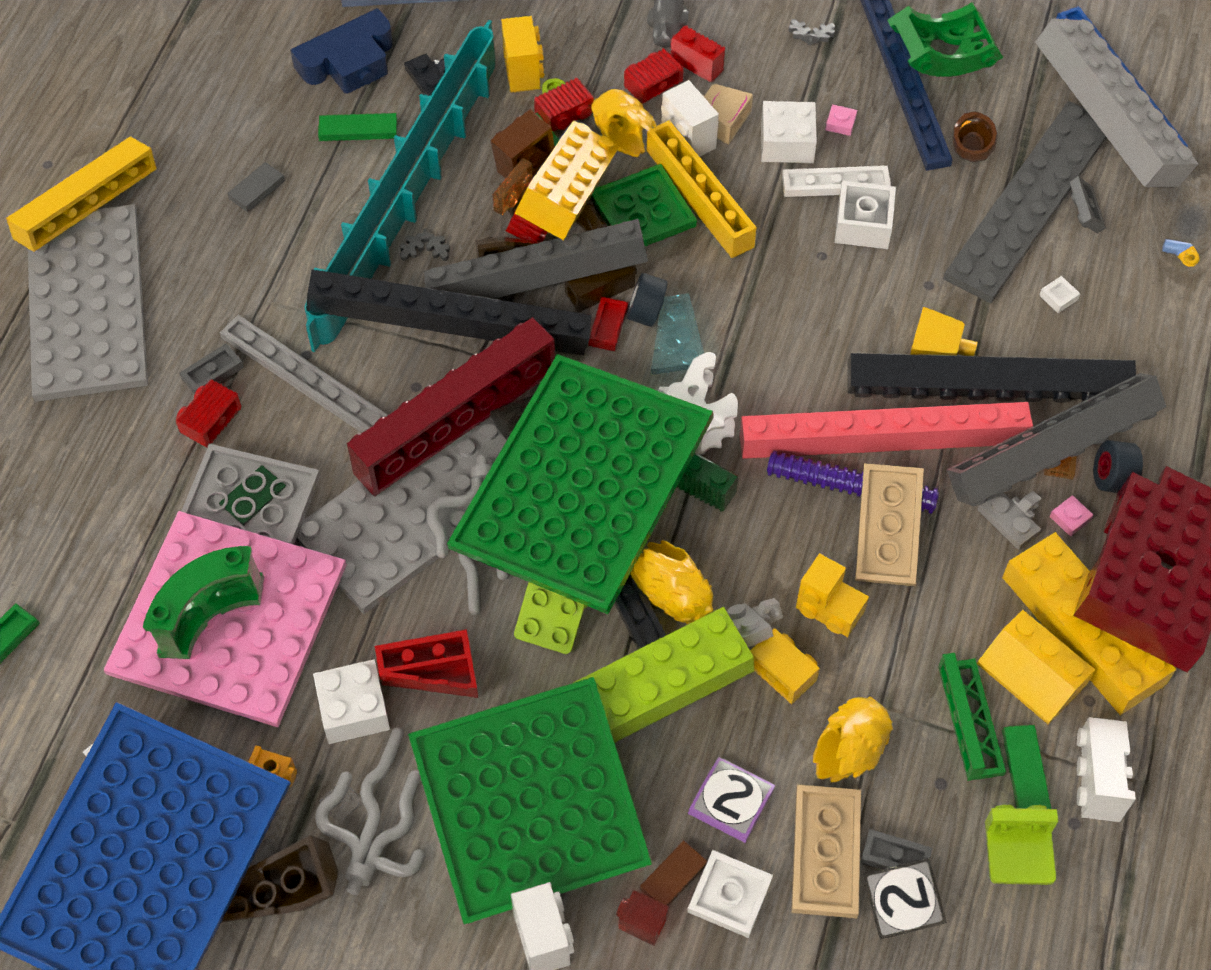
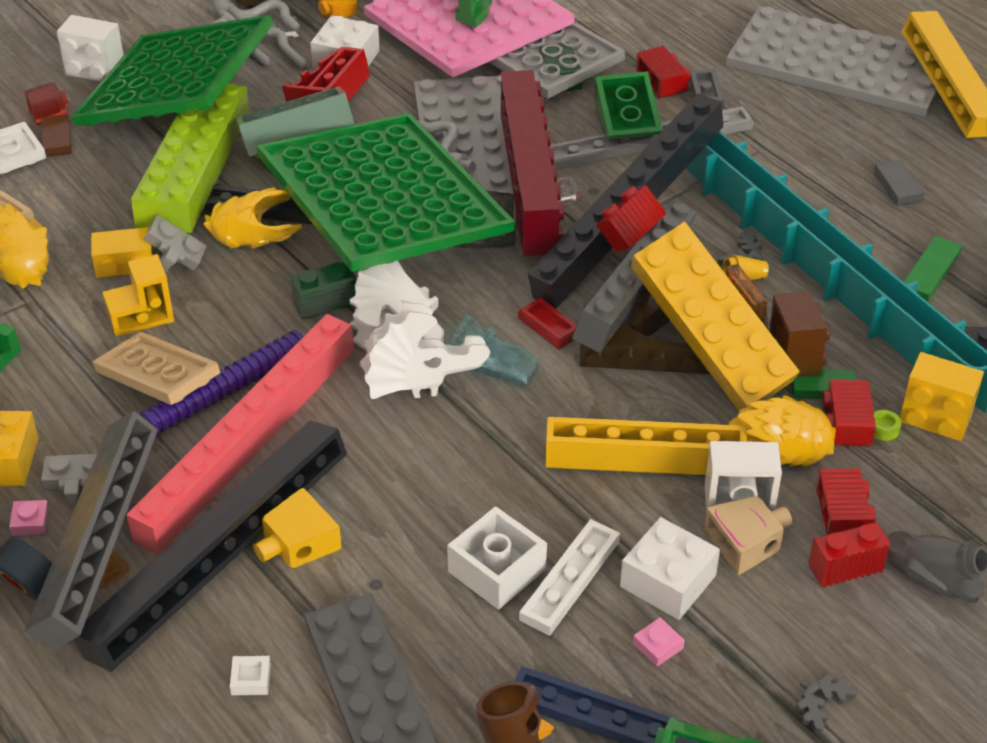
camera: 125 degrees right, 15 degrees down
(299, 400) = (626, 105): none -> green slope
(454, 230) = (753, 268): none -> yellow cone
(490, 282) = (631, 218): none -> red brick
(525, 632) = (295, 118): none -> sand green brick
(645, 197) = (663, 394): green plate -> none
(647, 299) = (545, 341): black wheel -> none
(731, 799) = (67, 182): slope -> none
(736, 349) = (404, 361): none -> white animal

